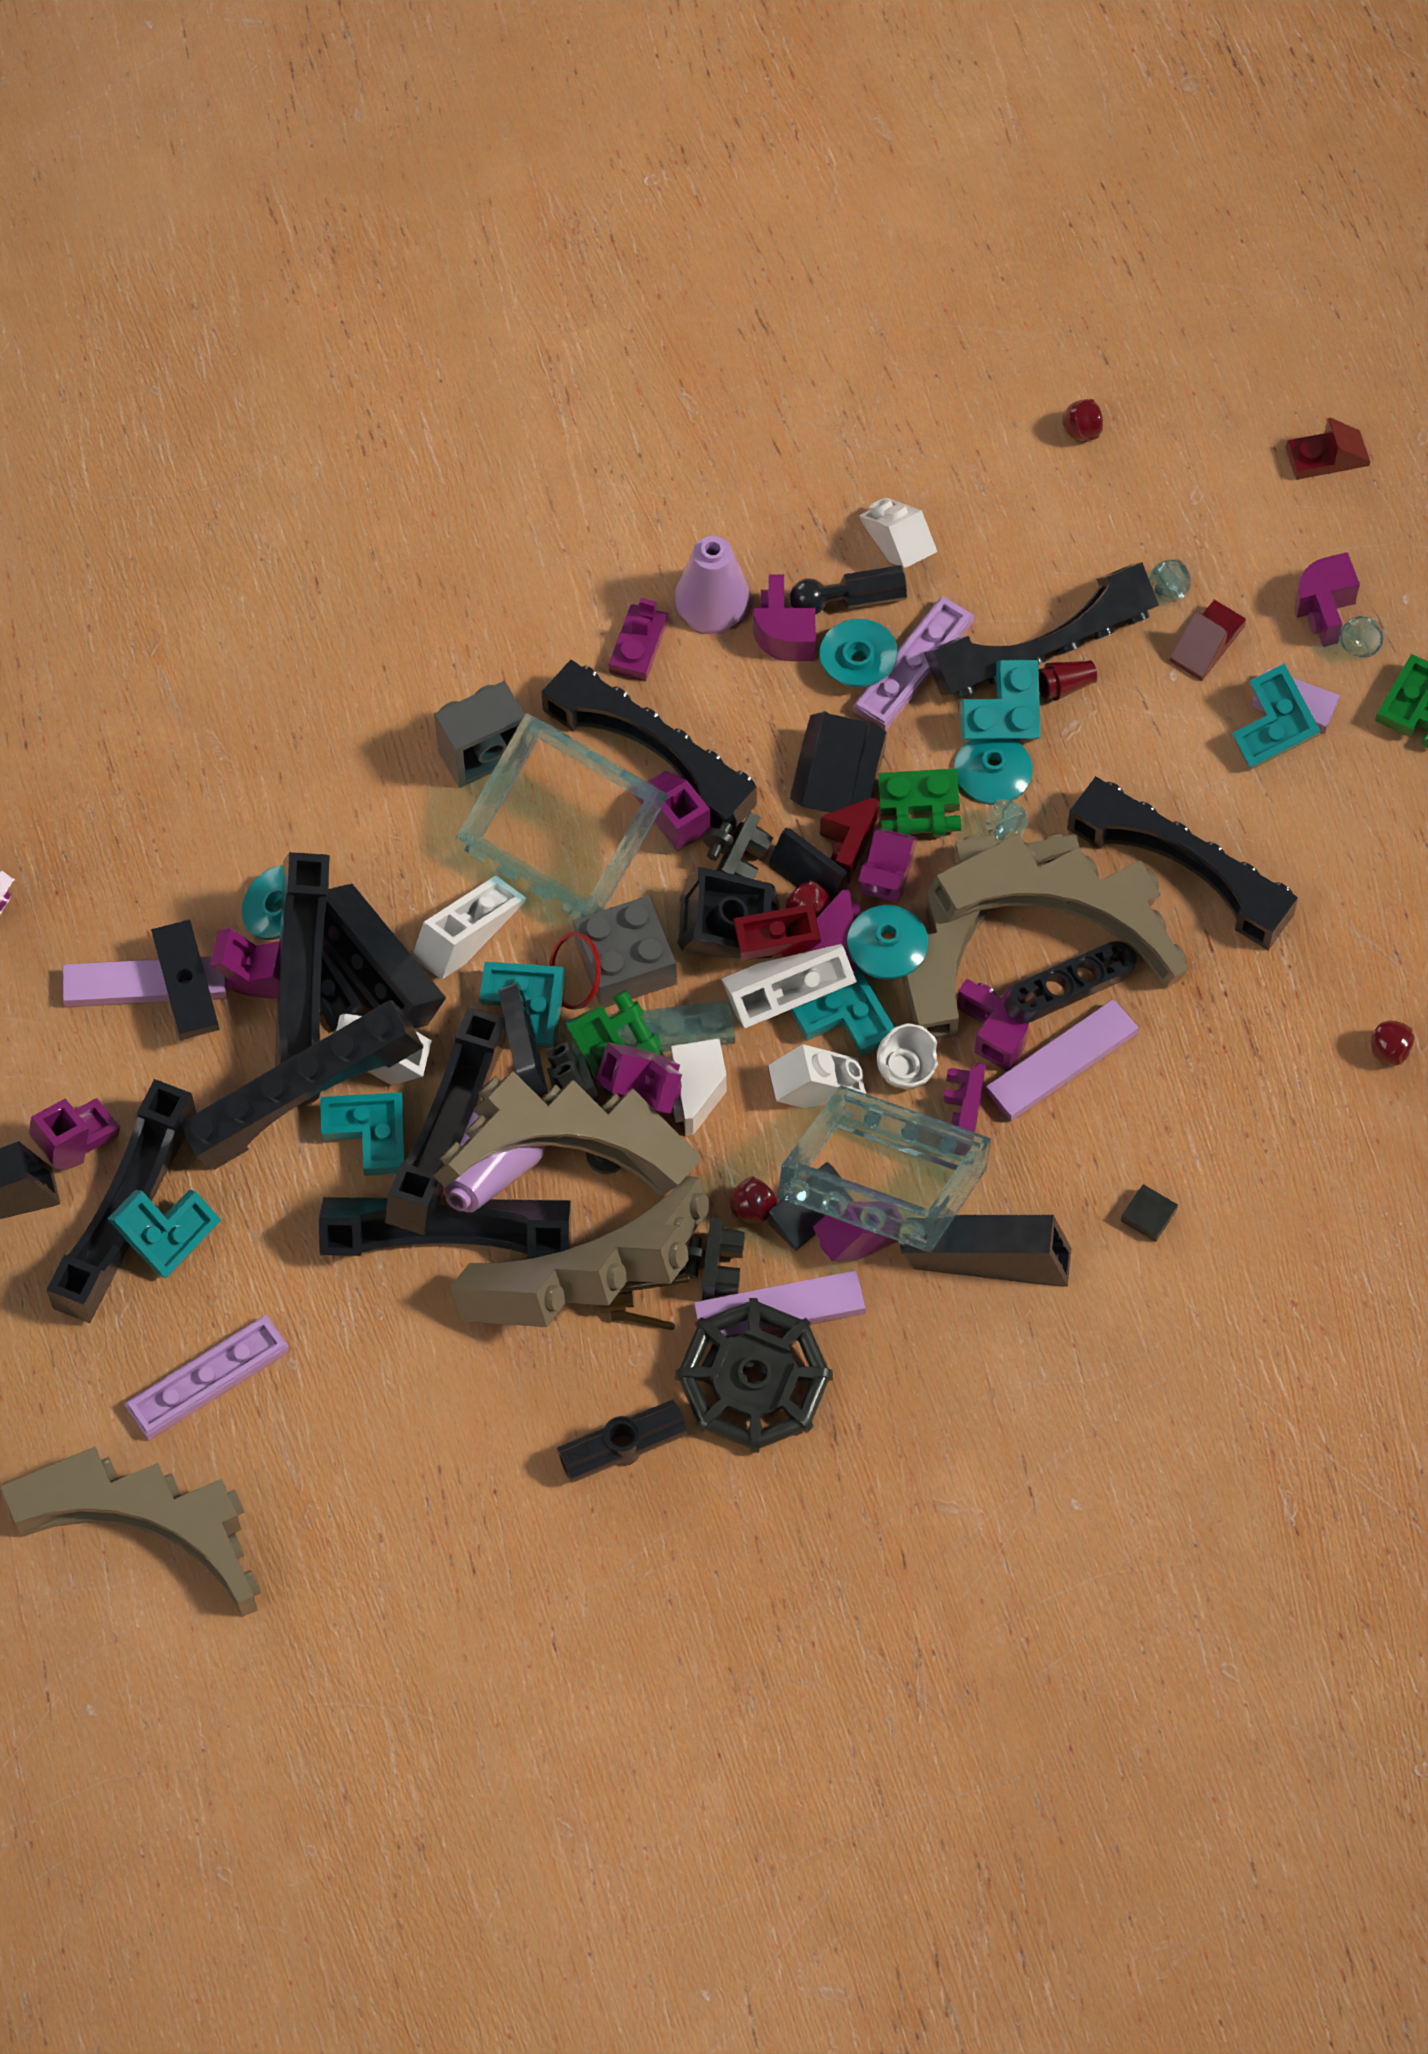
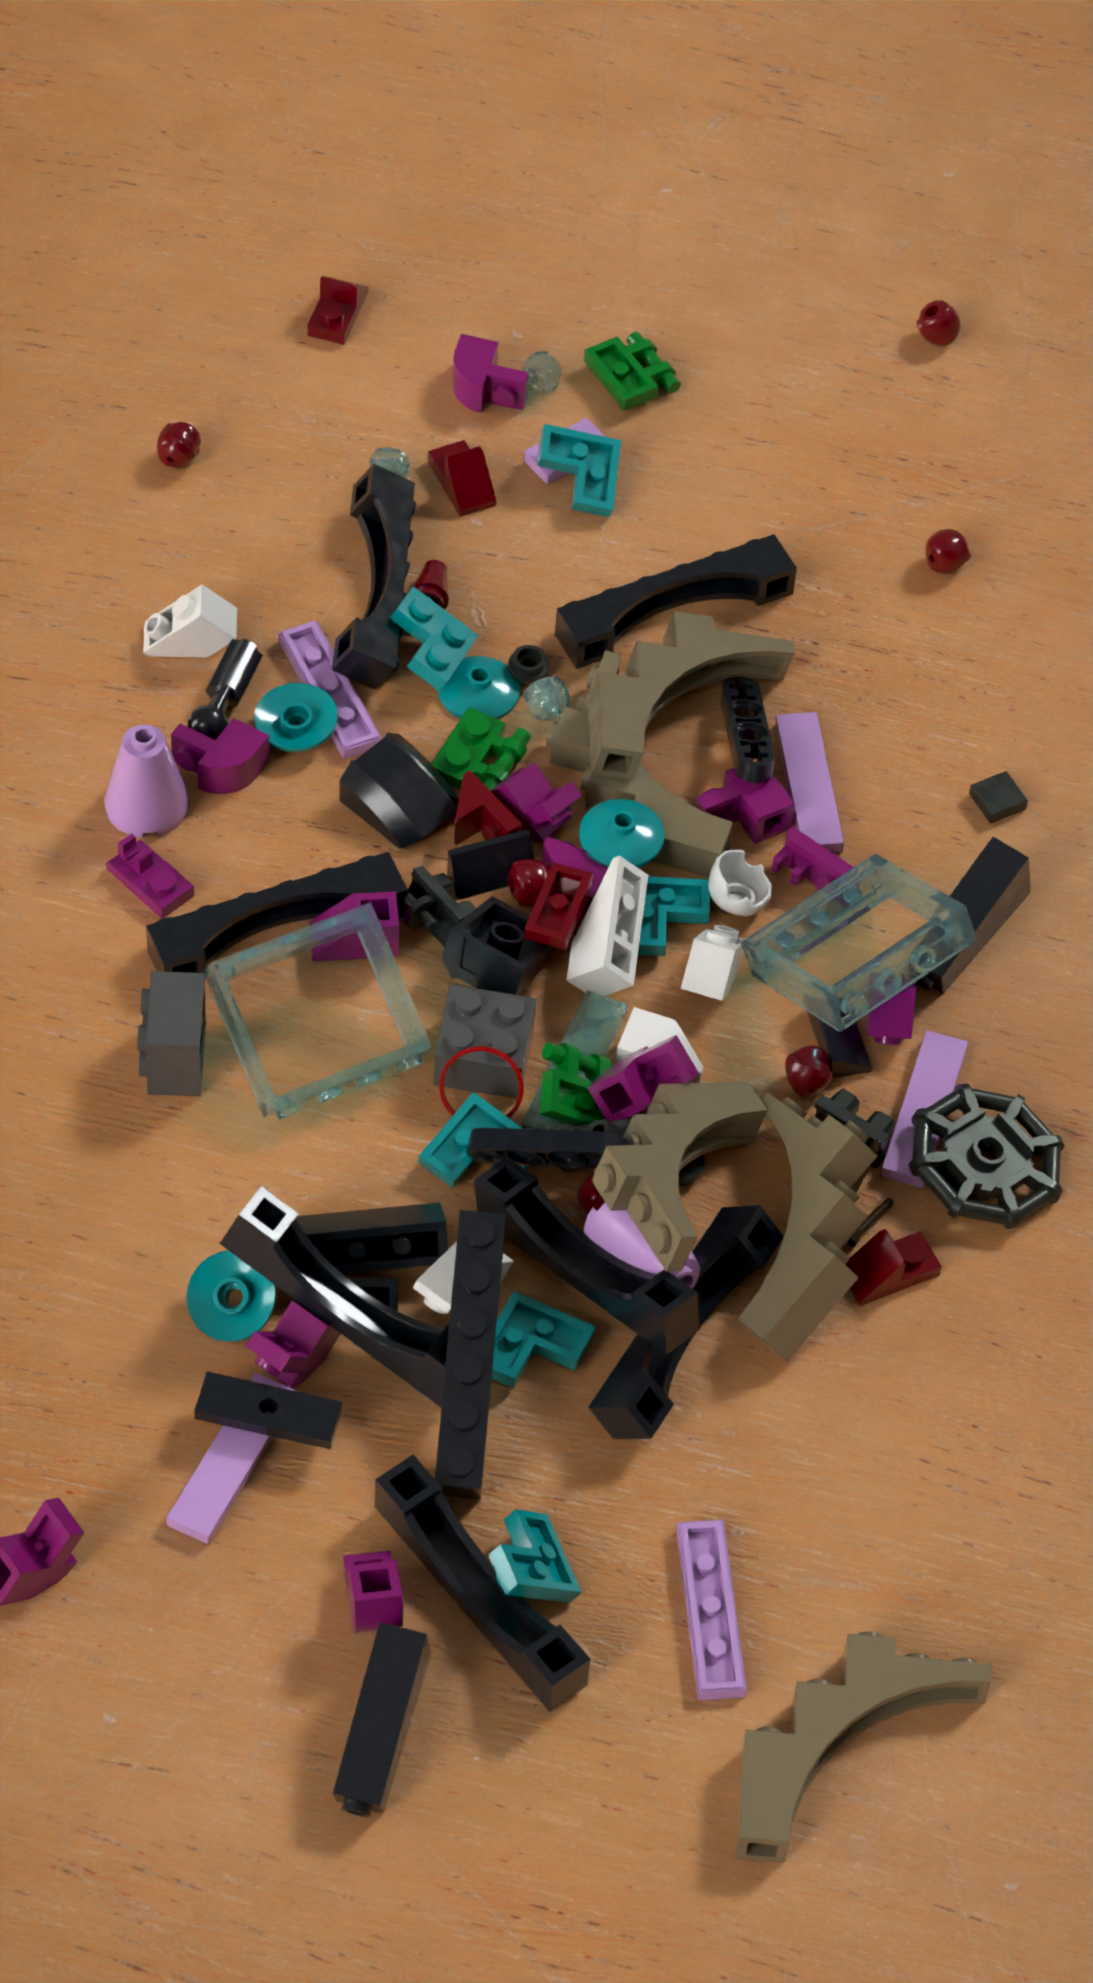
camera: 65 degrees left, 10 degrees down
(465, 926) = (368, 1154): white slope -> none
(597, 1452) = (992, 1311): black piece -> none
(603, 1356) = (891, 1265): none -> dark red slope
(1040, 781) = (528, 664): none -> pearl dark grey plate

